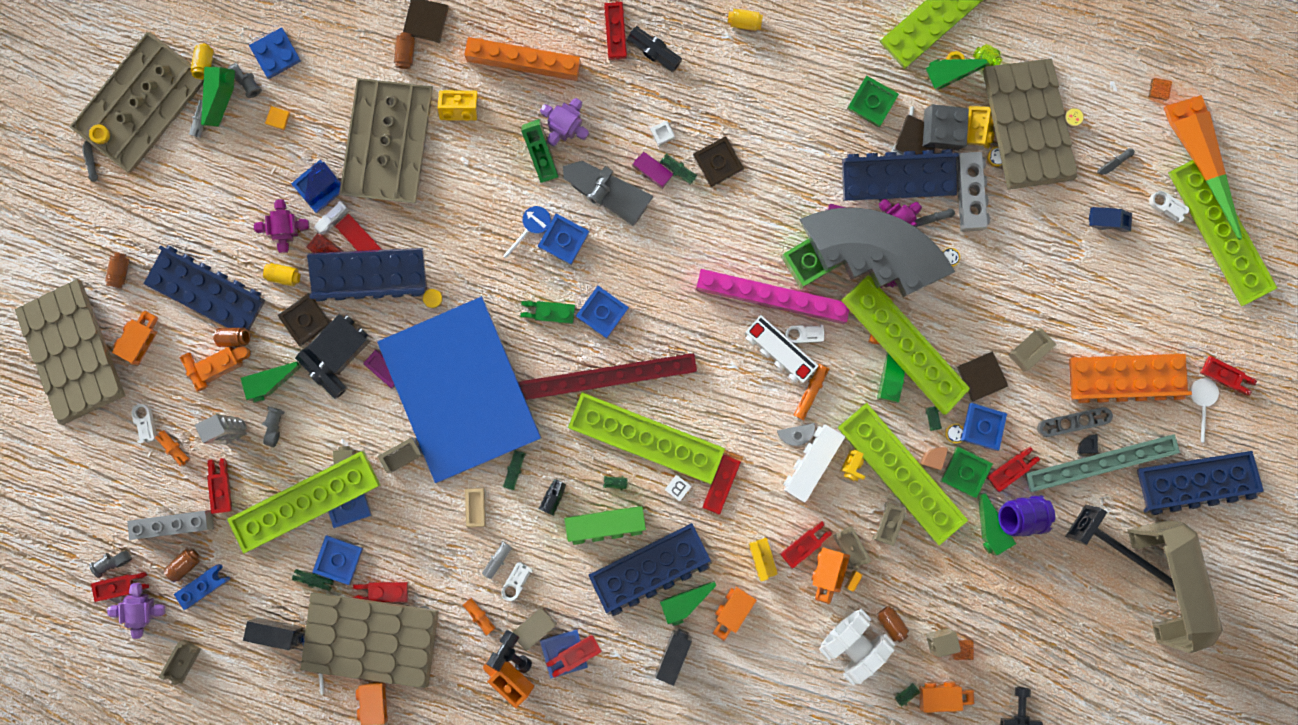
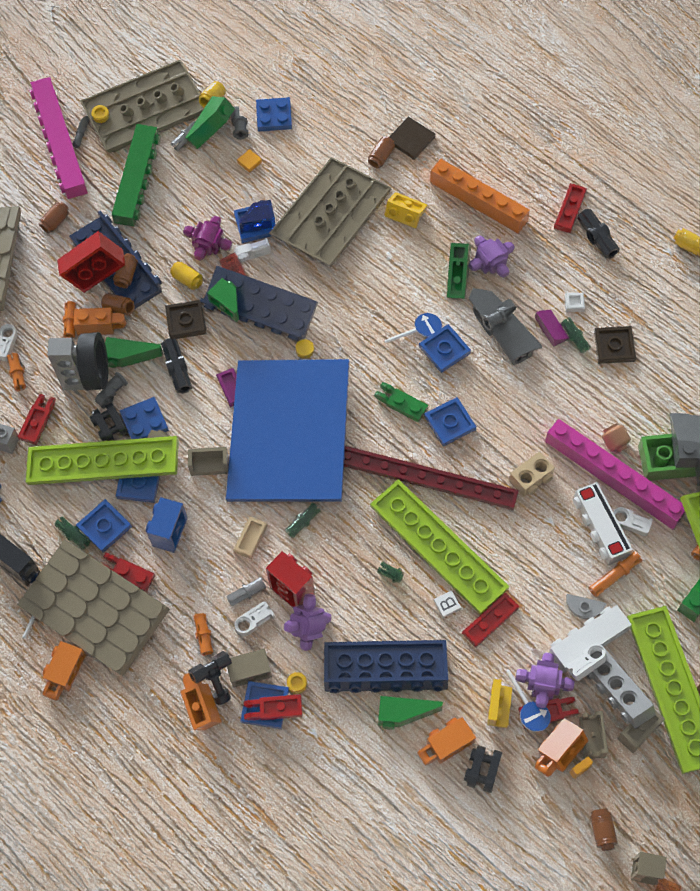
camera: 30 degrees right, 20 degrees down
(70, 179) = (58, 137): none -> dark pink brick
(136, 338) = (37, 274): orange brick -> none
(173, 188) = (135, 175): none -> green brick
(184, 310) = (91, 262): none -> red brick
(221, 300) = (124, 276): none -> dark orange head
(244, 416) = (92, 361): none -> black tyre
(290, 470) = (106, 433): none -> black brick
(319, 440) = (143, 418): none -> blue plate
(334, 287) = (224, 297): none -> green slope
(339, 343) = (205, 348): black brick -> none
(356, 234) = (265, 269): red tile -> none
(395, 536) = (167, 524): none -> blue brick
(534, 540) = (289, 579): none -> red brick
(552, 497) = (325, 559): black hinge -> none
(566, 566) = (307, 622): none -> medium lavender piece
(581, 620) = (297, 683): none -> yellow tile
(605, 524) = (363, 600): bright green brick -> none
(673, 656) = (369, 753): black brick -> none
(695, 329) = (528, 471): none -> tan brick
(759, 260) = (616, 438): none -> nougat head
(767, 630) = (472, 775): none -> black brick
(792, 520) = (544, 680): none -> medium lavender piece
(796, 555) = (531, 716): none -> blue piece
(821, 493) = (586, 664): none -> white piece
(833, 481) = (636, 713): none -> light grey brick
(851, 464) = (628, 653): yellow bracket -> none
(864, 655) = (553, 817): white piece -> none

